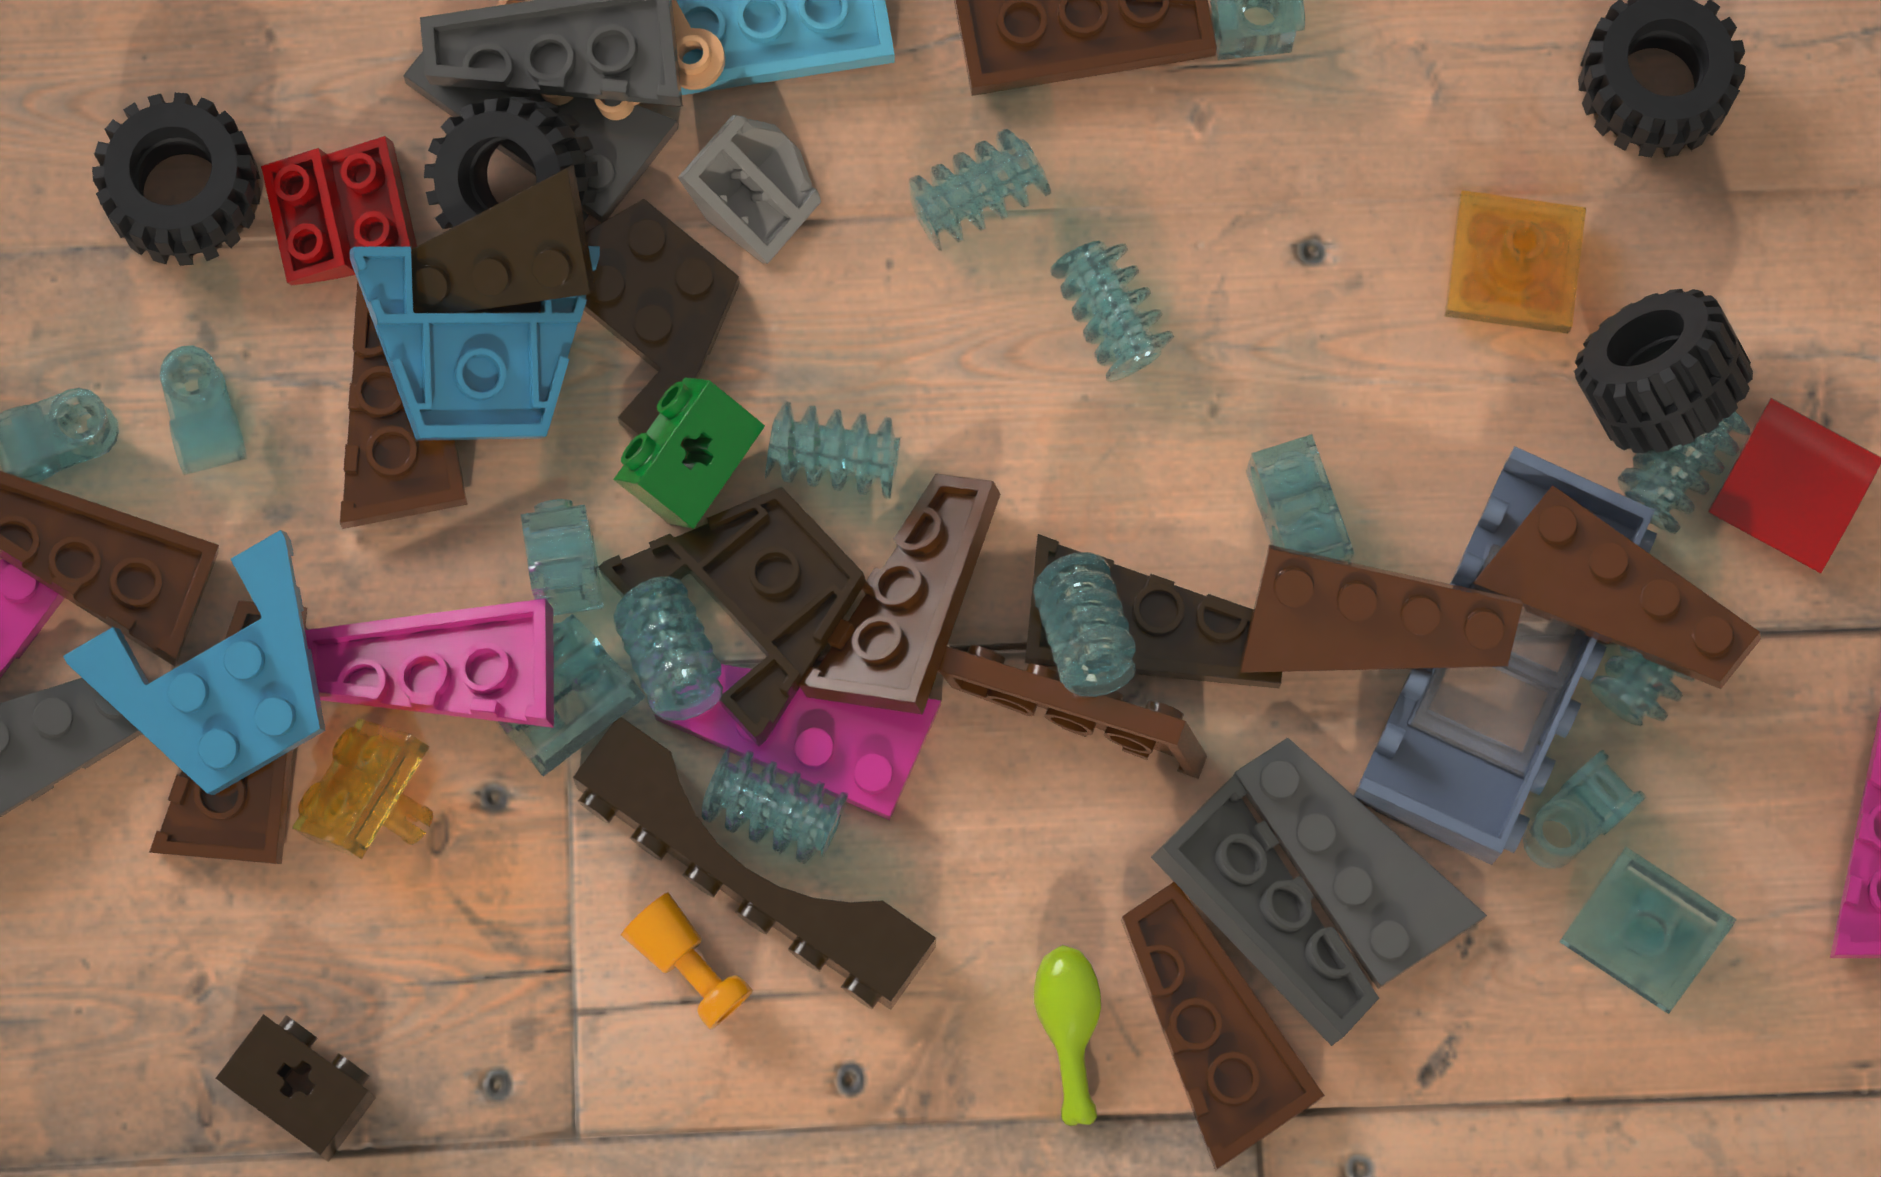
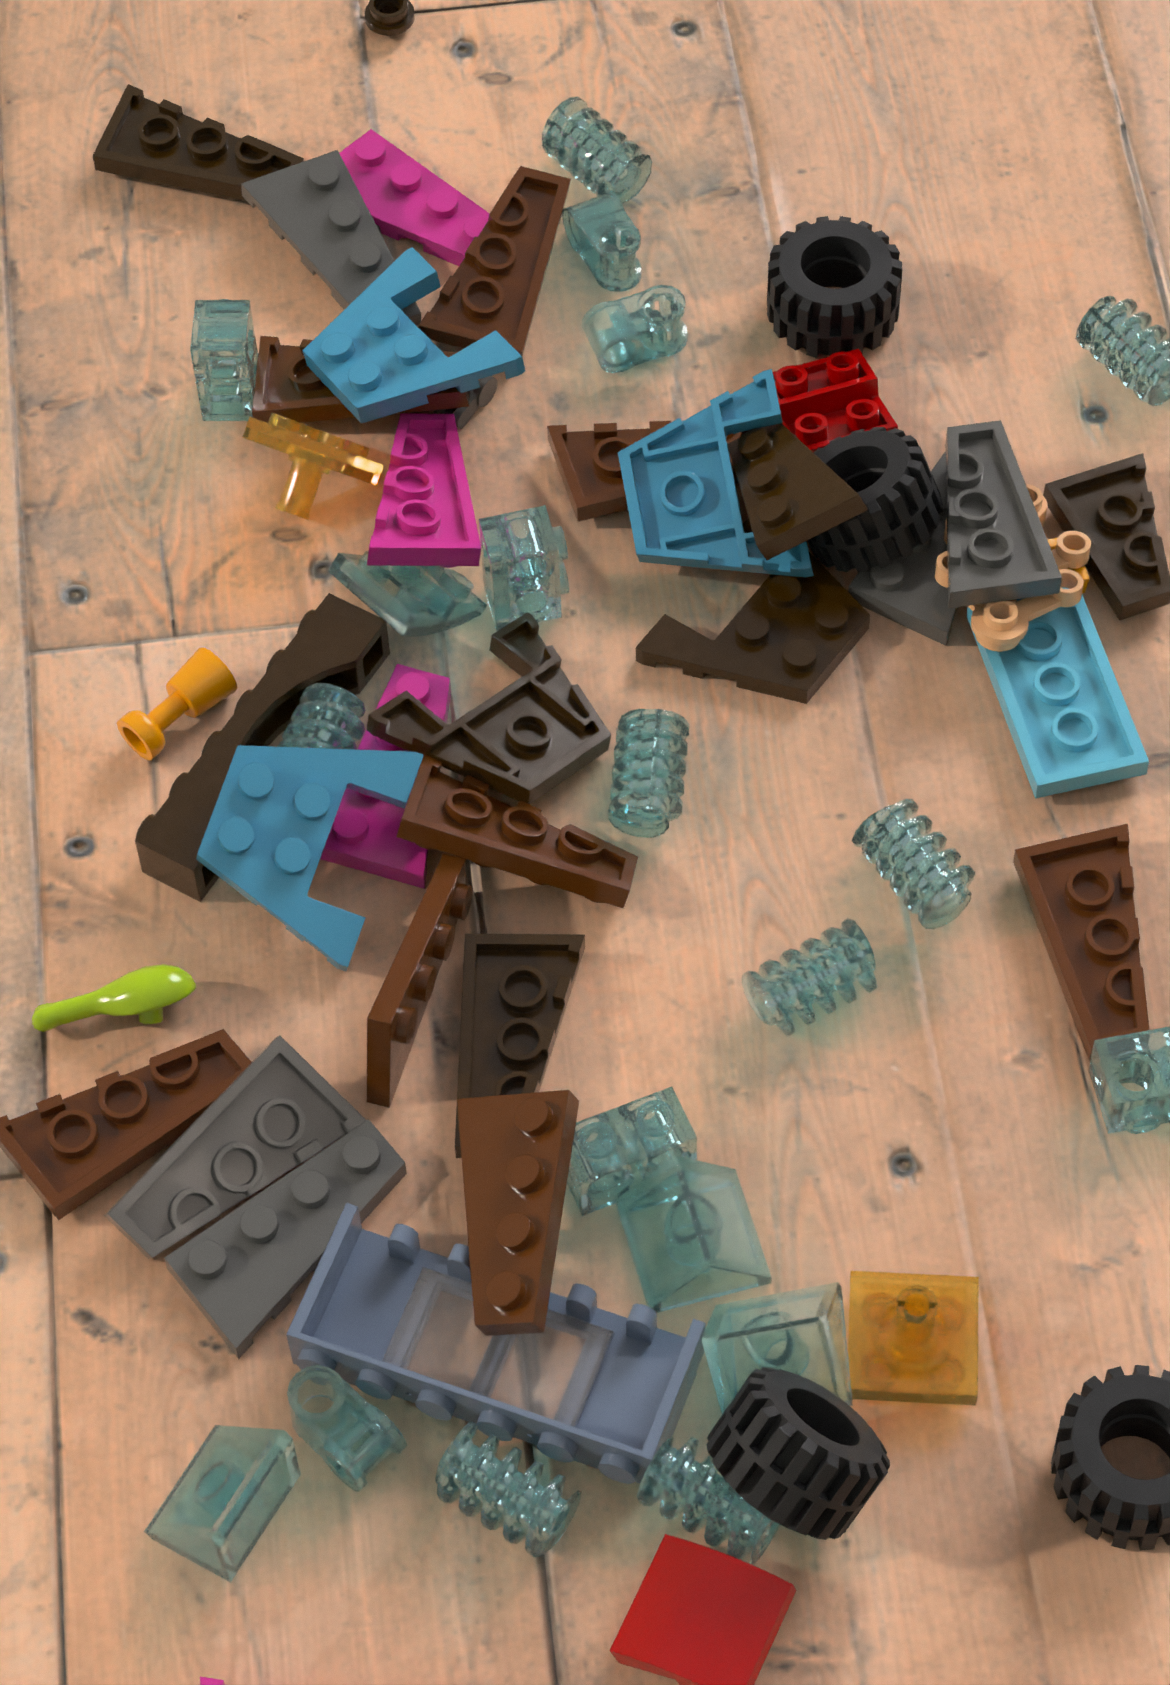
camera: 90 degrees right, 20 degrees down
(206, 884) = (224, 358): none -> clear light blue brick
(259, 1077) = (65, 447): dark brown brick -> none
(669, 649) = (448, 649): clear light blue piece -> none
(717, 440) = (601, 649): green brick -> none
(752, 185) = (896, 691): light grey slope -> none
(888, 840) = (276, 825): none -> dark azure wing
(1085, 624) = (484, 944): clear light blue piece -> none
(1390, 460) = (691, 1234): none -> clear light blue slope
(1523, 386) = (784, 1331): none -> clear light blue slope
(1599, 581) = (559, 1416): reddish brown wing -> none

